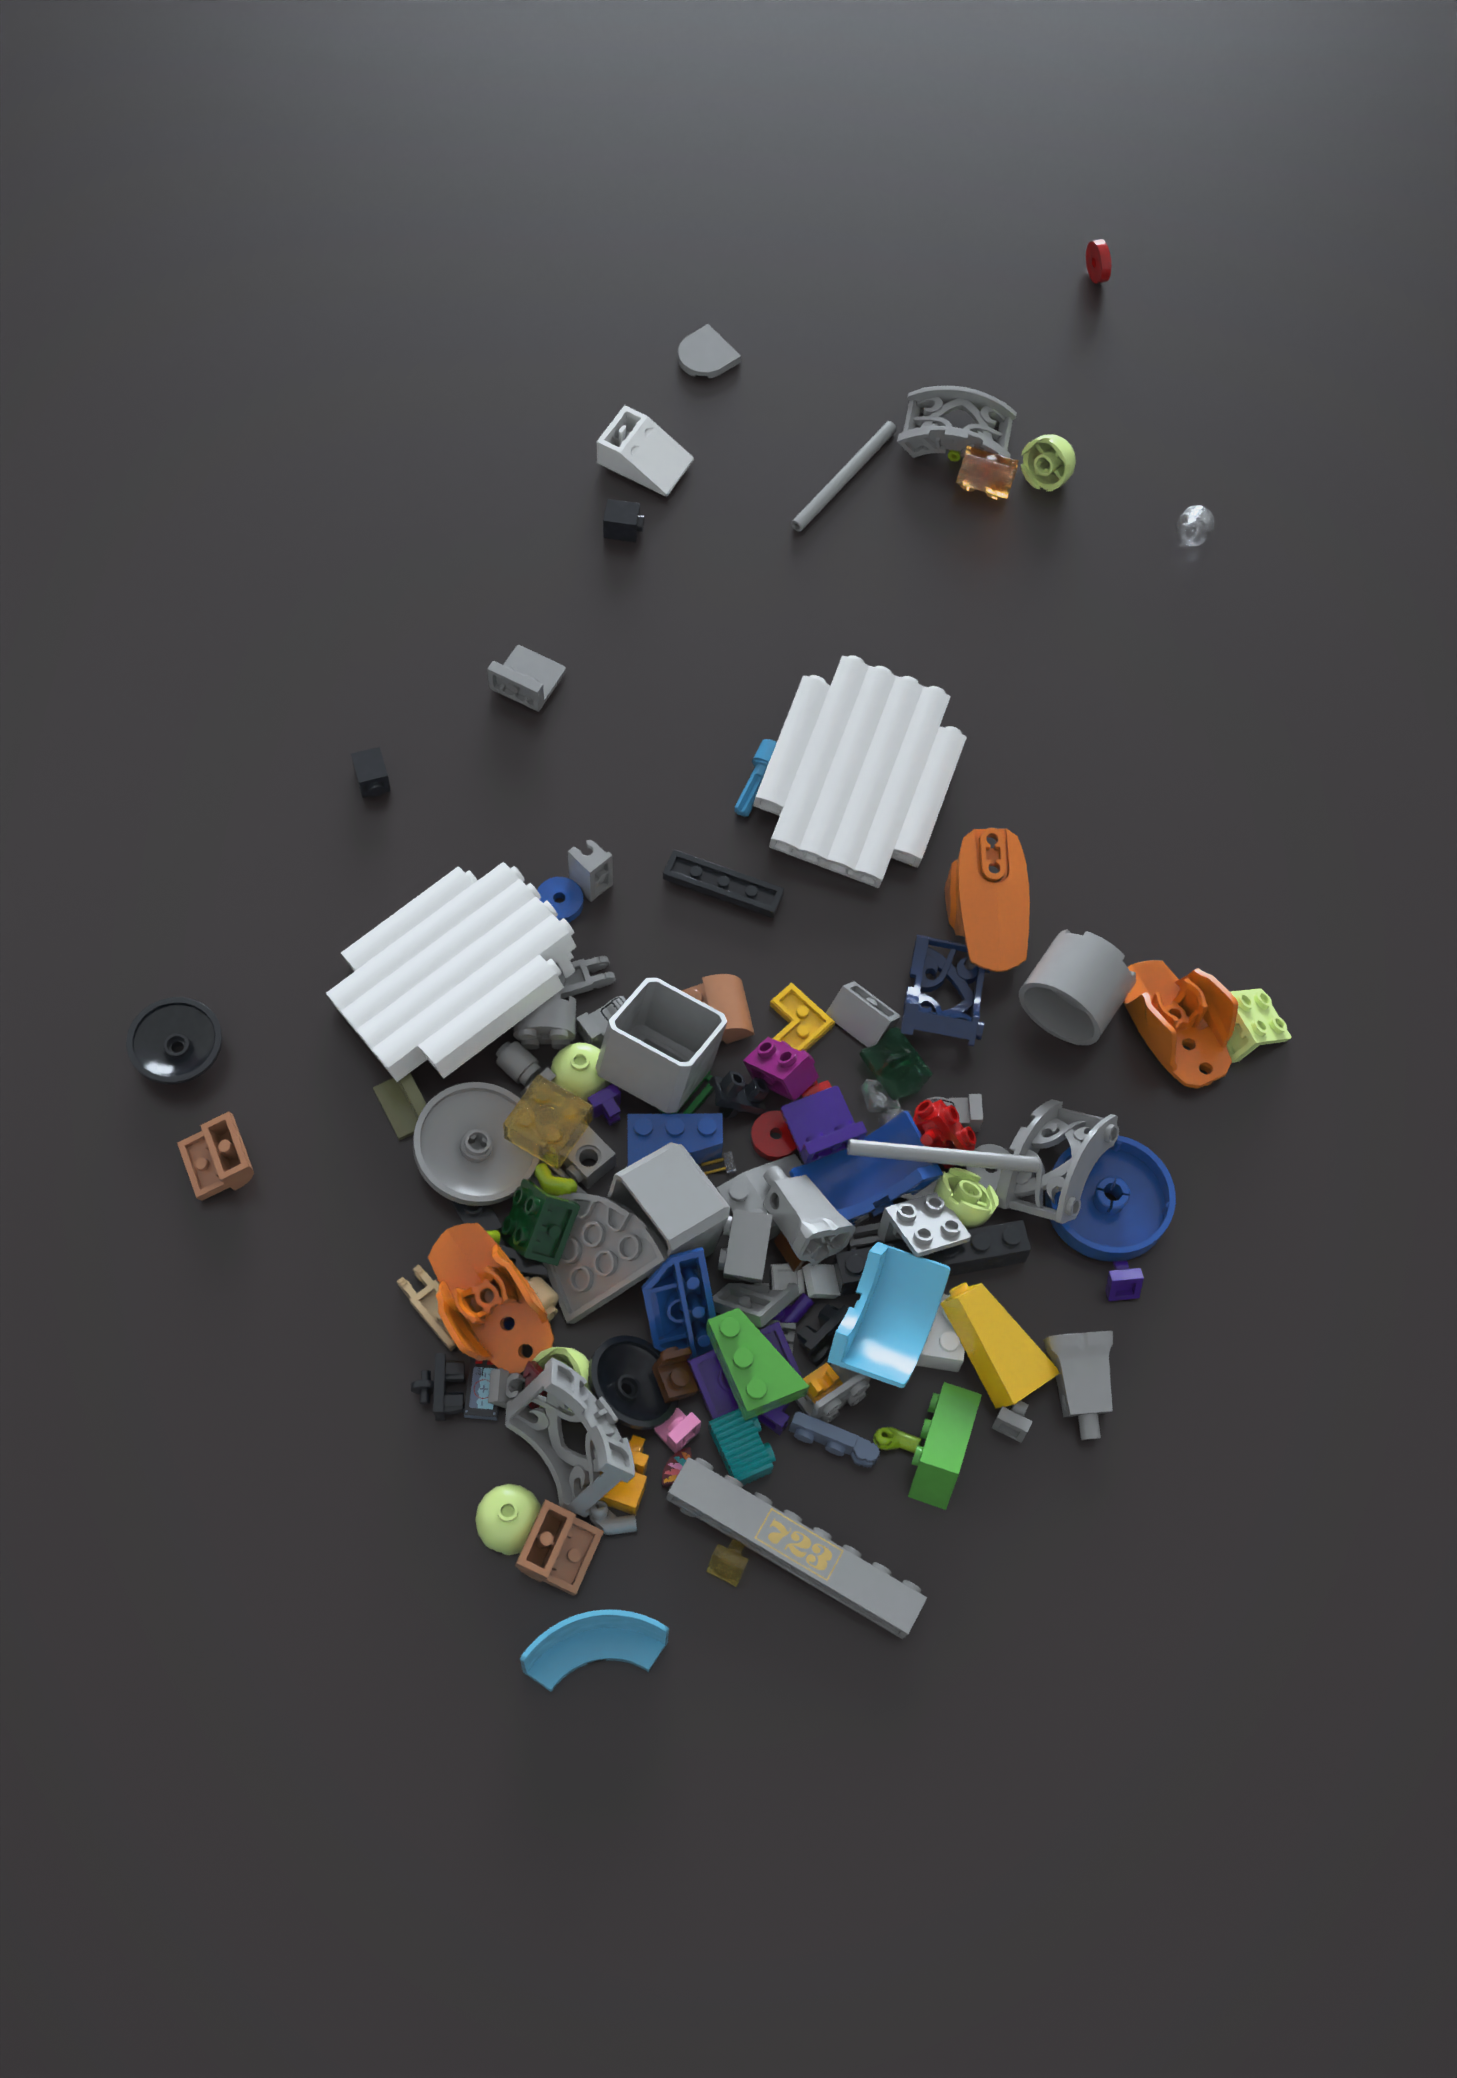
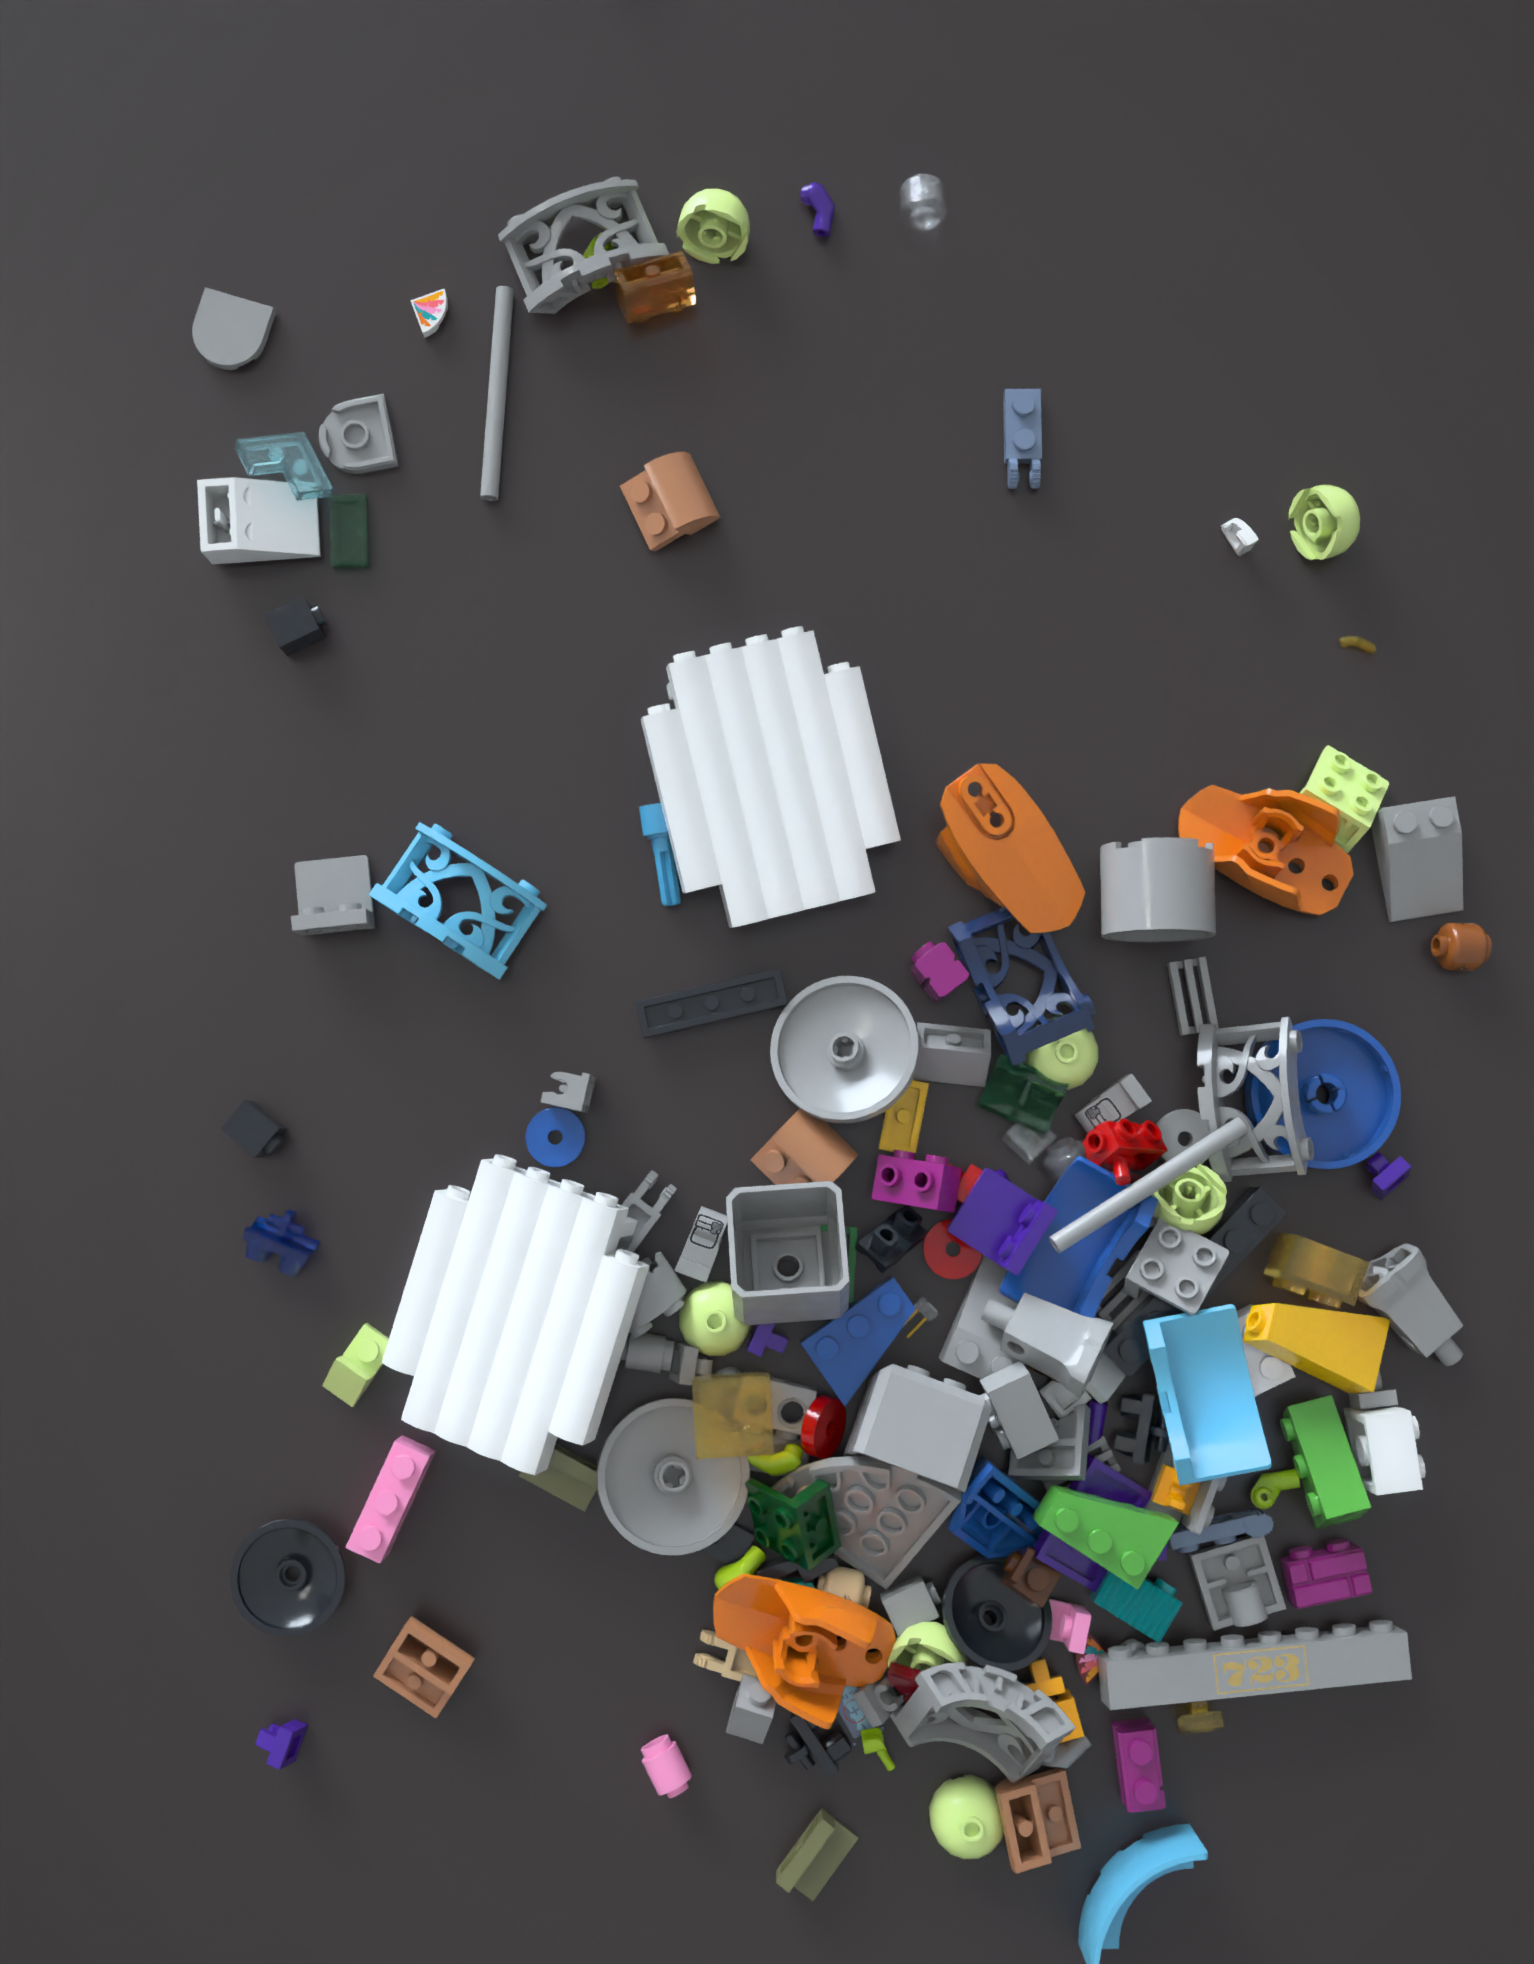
camera: 30 degrees left, 20 degrees up
(85, 1145) = (282, 1742): none -> dark purple tile
(279, 1040) = (390, 1499): none -> bright pink brick
(319, 953) = (357, 1366): none -> yellowish green slope
(324, 1334) = (666, 1766): none -> bright pink brick
(325, 838) = (281, 1237): none -> clear blue hips
(381, 1470) = (816, 1855): none -> olive panel
(414, 1332) = (751, 1711): none -> light grey brick
(482, 1413) = (873, 1742): none -> lime hand
(578, 1336) = (911, 1603): none -> light grey brick
(596, 1173) = (823, 1427): none -> red piece
(606, 690) = (476, 947): none -> medium azure fence
(660, 1562) = (1138, 1765): none -> magenta brick
(691, 432) = (286, 454): none -> clear light blue tile
(695, 494) = (349, 531): none -> clear green tile
(741, 450) = (359, 436): none -> light grey tile
(792, 959) = (845, 1049): none -> light grey dish
(824, 1486) = (1237, 1582): none -> light grey plate
(836, 411) = (430, 311): none -> tile
(890, 950) = (937, 970): none -> magenta brick
(893, 1523) = (1325, 1574): none -> magenta brick
(911, 589) = (669, 499): none -> nougat brick
(945, 1058) = (1067, 1059): none -> yellowish green cylinder
(997, 1451) = (1385, 1448): none -> white brick
(1029, 1298) = (1312, 1267): none -> clear yellow brick
(1068, 1062) = (1206, 991): none -> light grey tile
(1128, 494) = (817, 196): none -> dark purple arm
(1172, 688) = (1022, 434): none -> sand blue hinge
(1276, 1167) = (1461, 946): none -> dark orange head
(1282, 828) = (1239, 535): none -> white tile
(1282, 1093) = (1420, 858): none -> light grey slope
(1325, 940) = (1352, 641): none -> clear yellow leg
(1349, 849) = (1324, 521): none -> yellowish green cylinder

